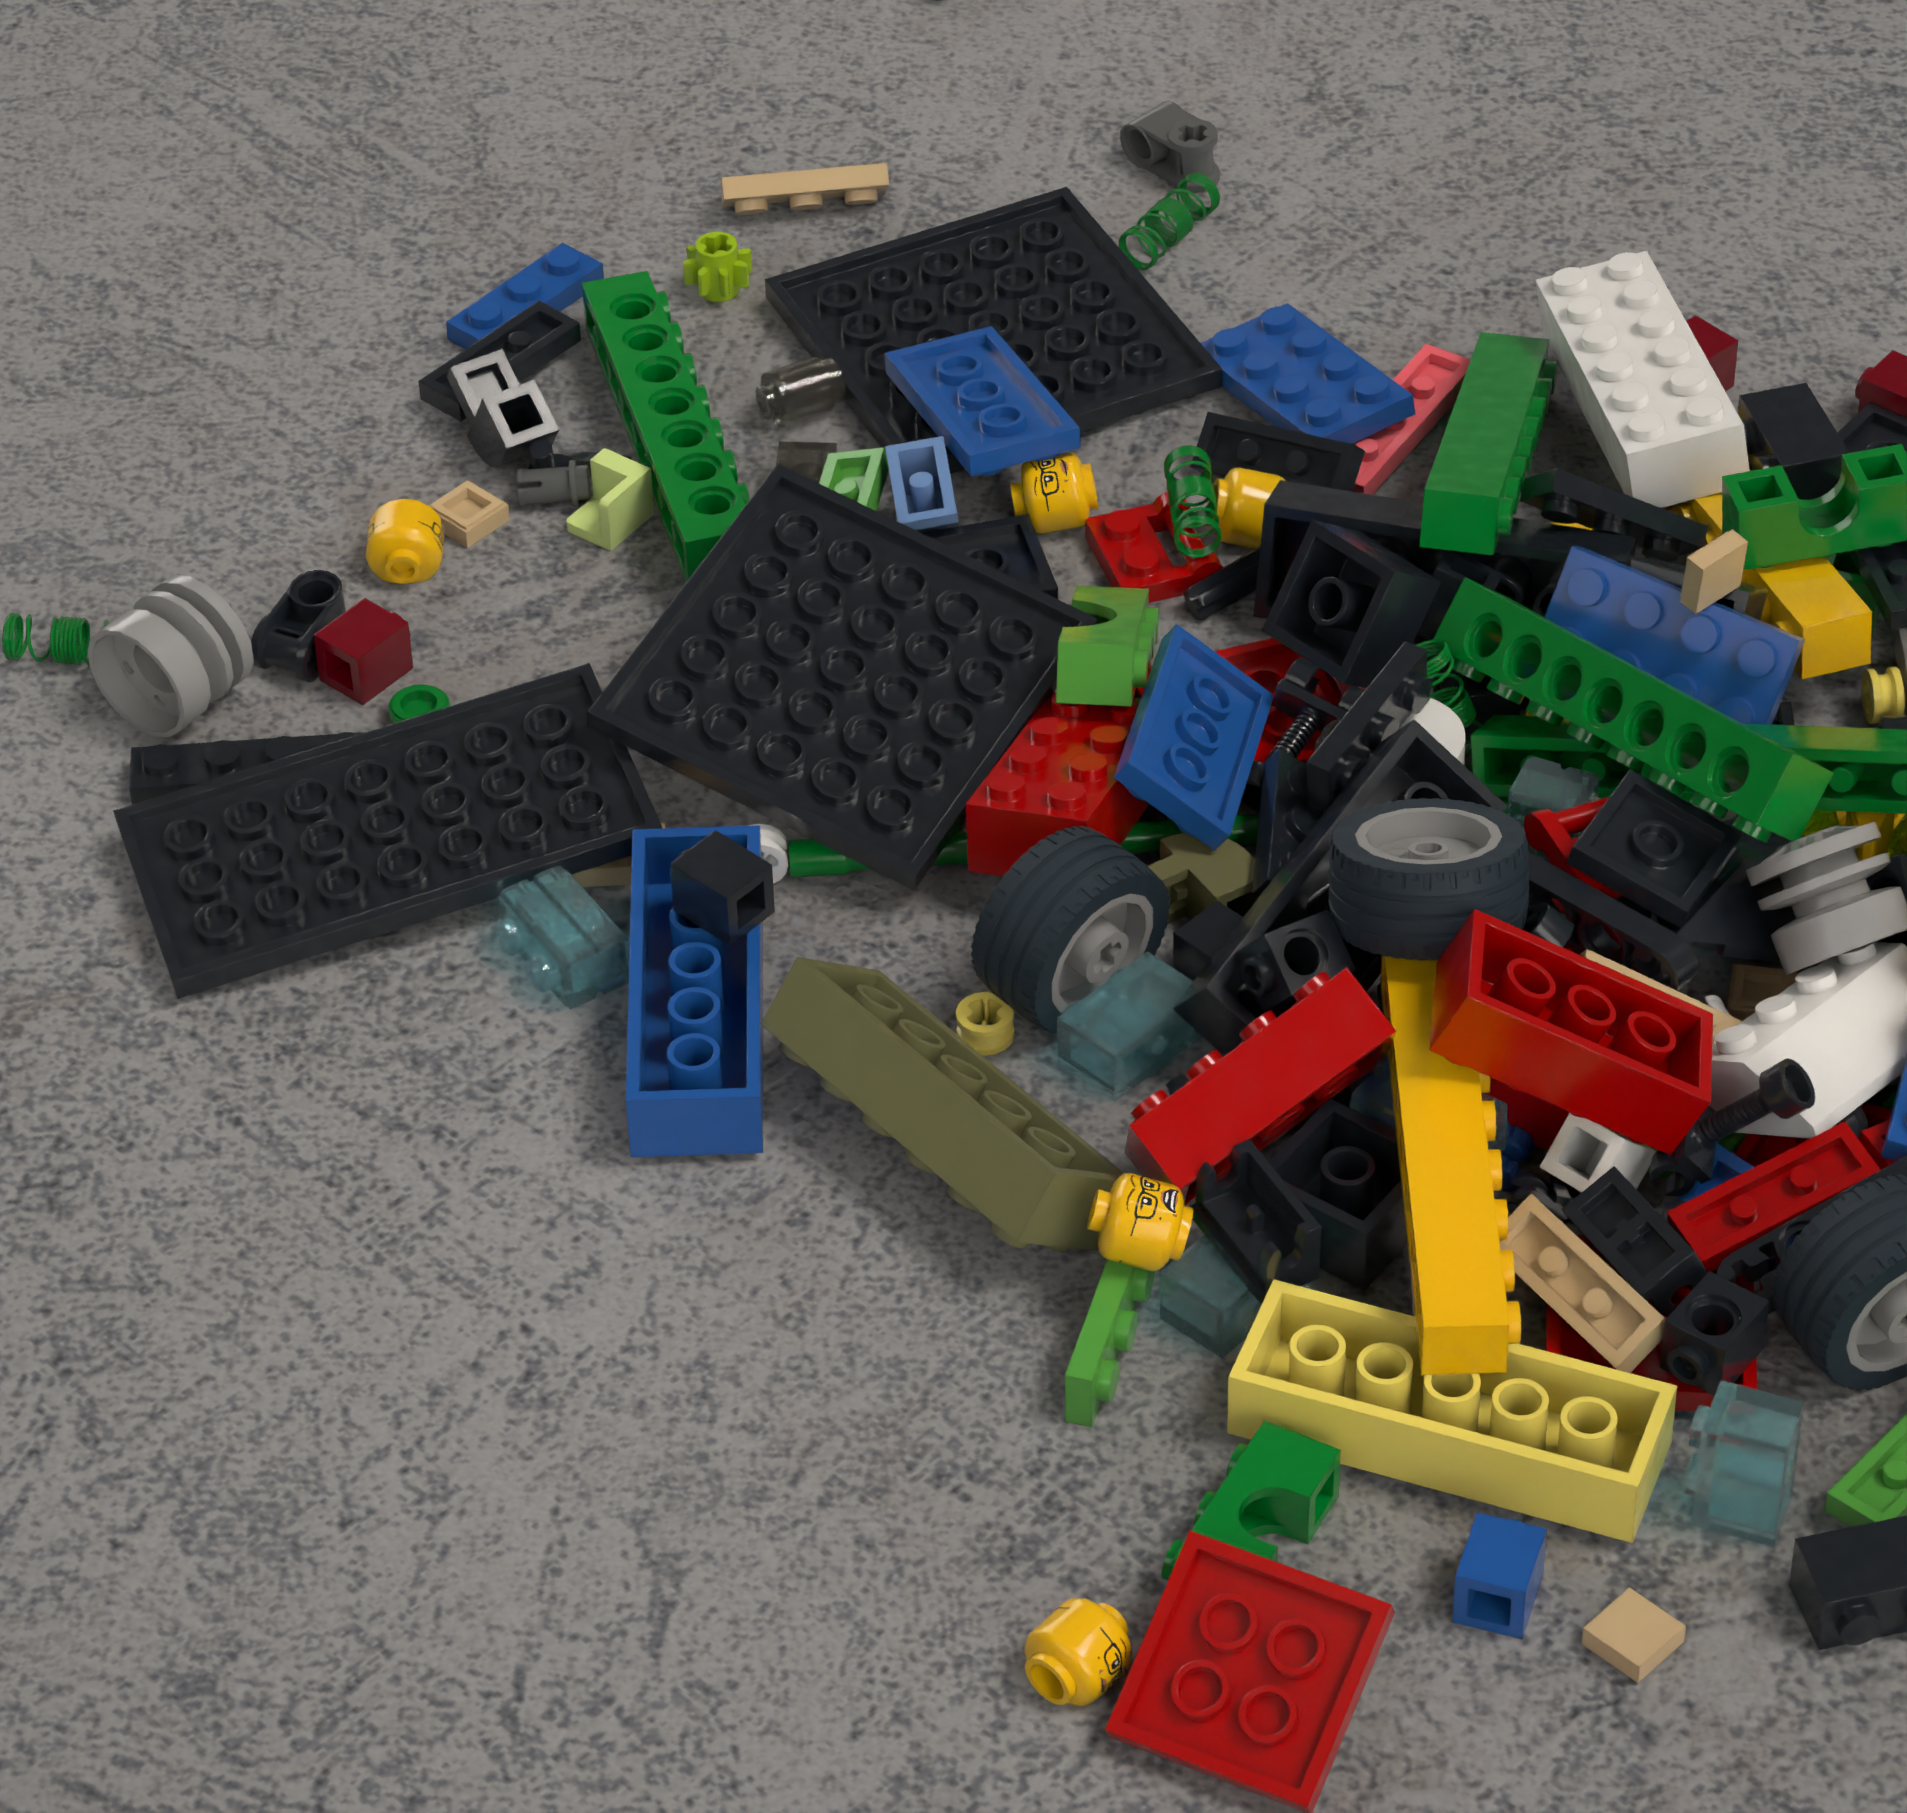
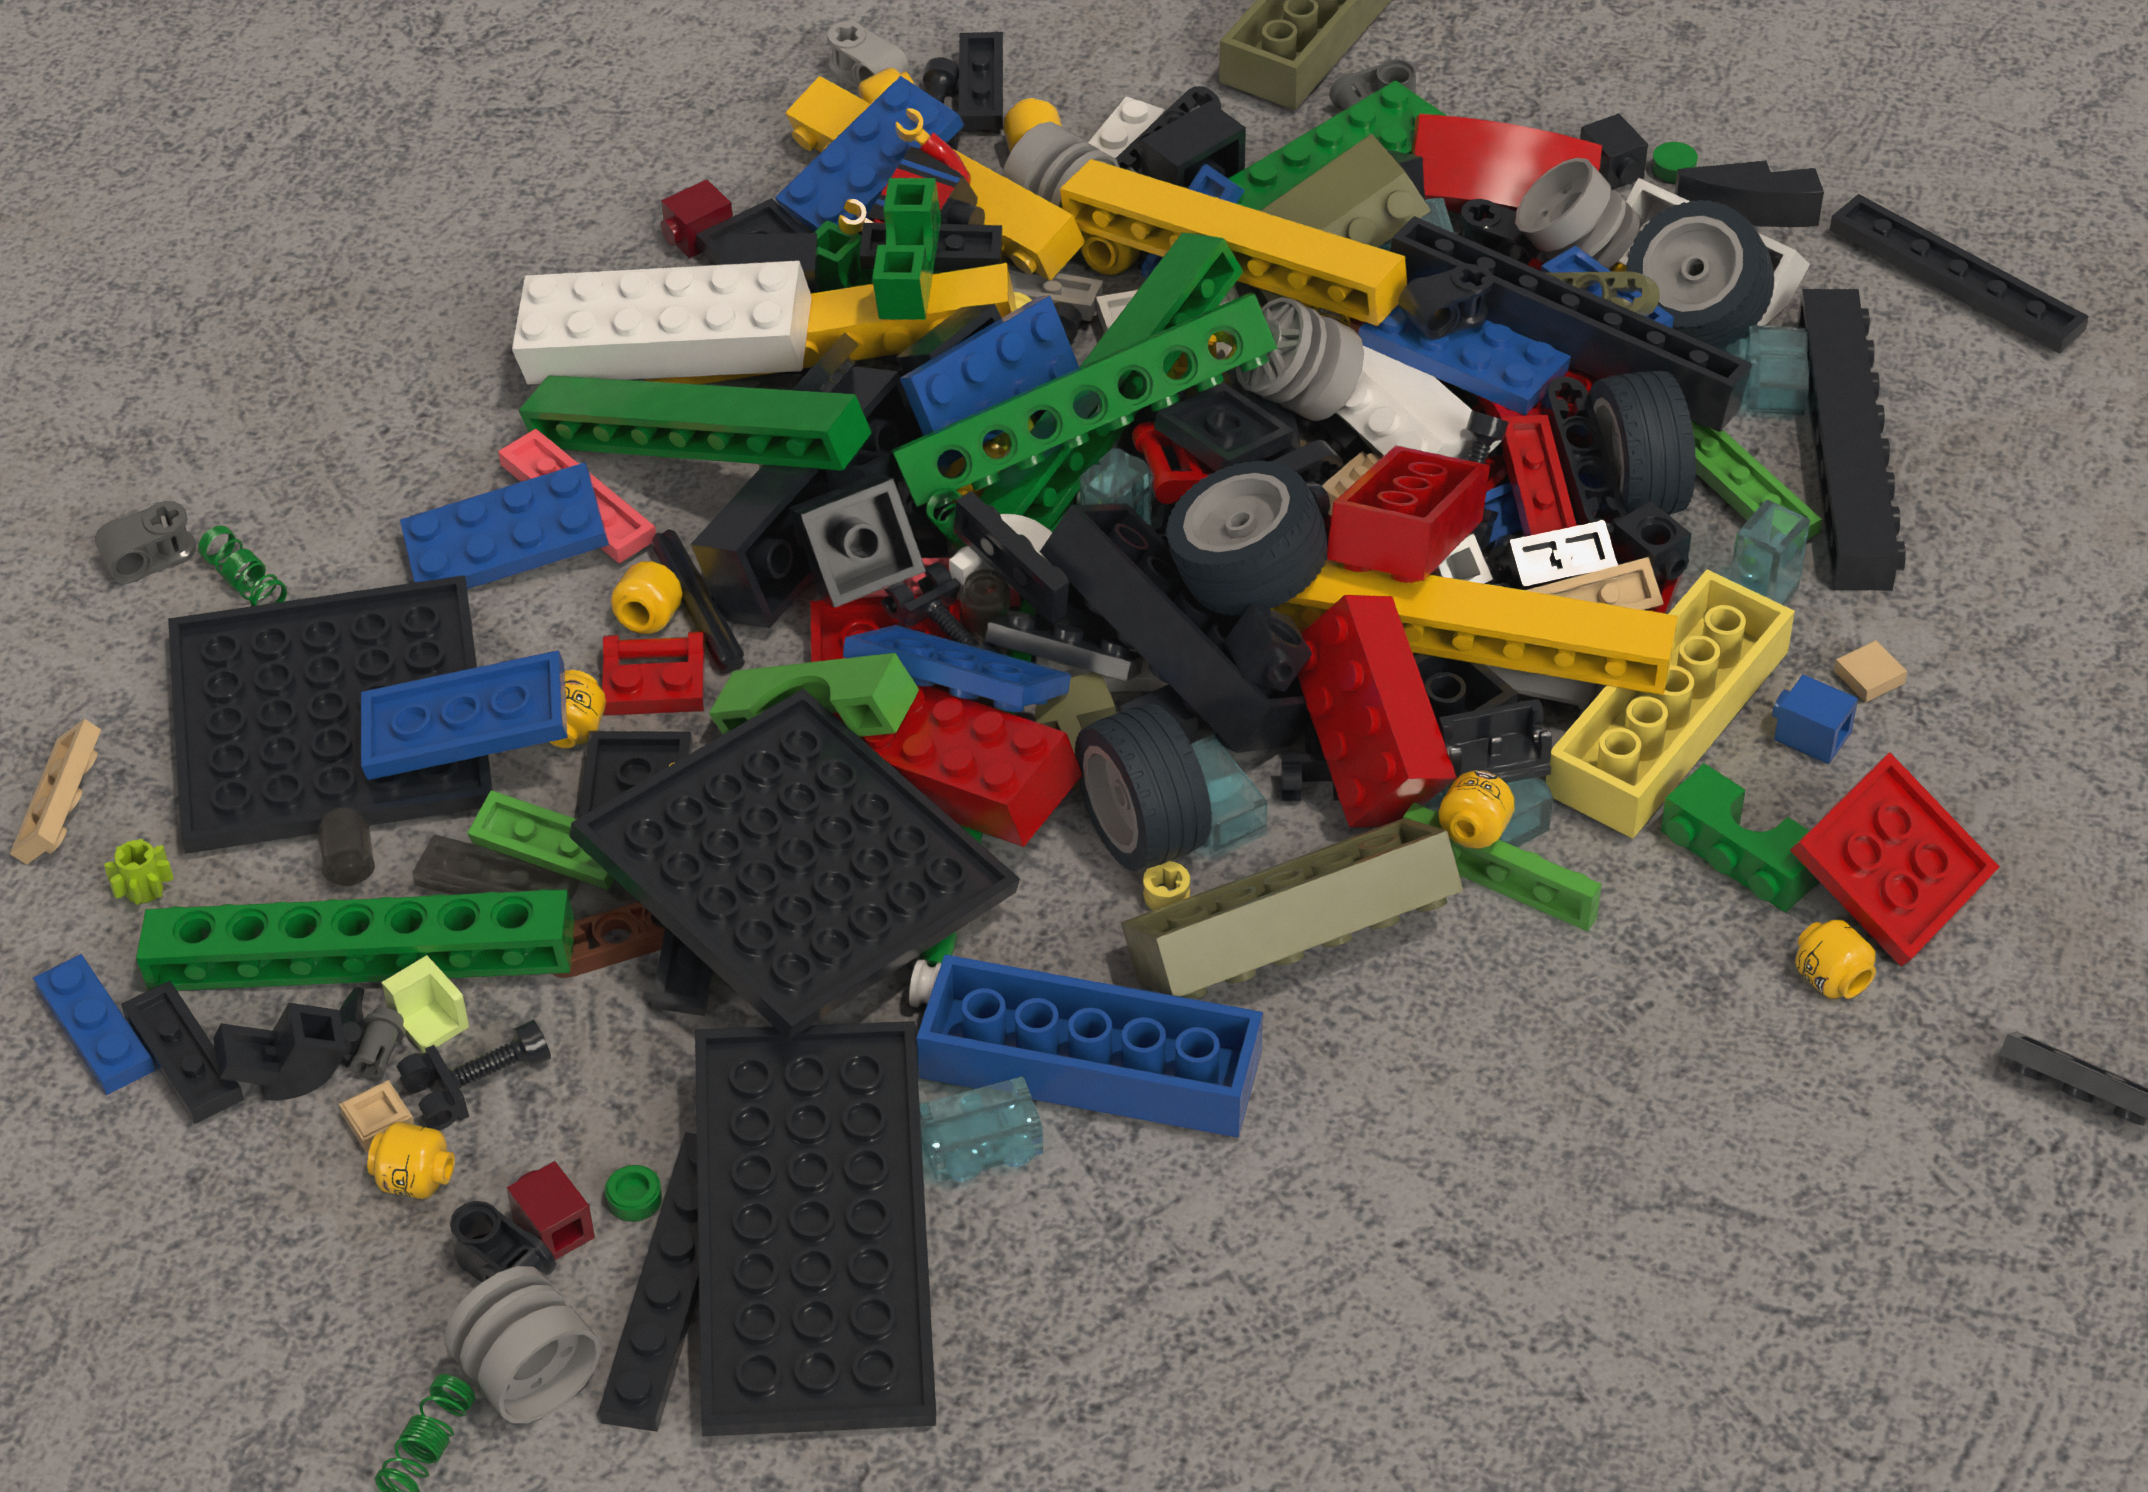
camera: 75 degrees left, 5 degrees up
(526, 539) = (445, 1106): none -> black bar
(722, 887) = (1038, 979): black brick -> none
(922, 484) = (555, 778): medium blue slope -> none
(1191, 486) = (641, 621): green piece -> none
(1277, 451) = (602, 564): black plate -> none
(1713, 571) = (989, 305): tan tile -> none

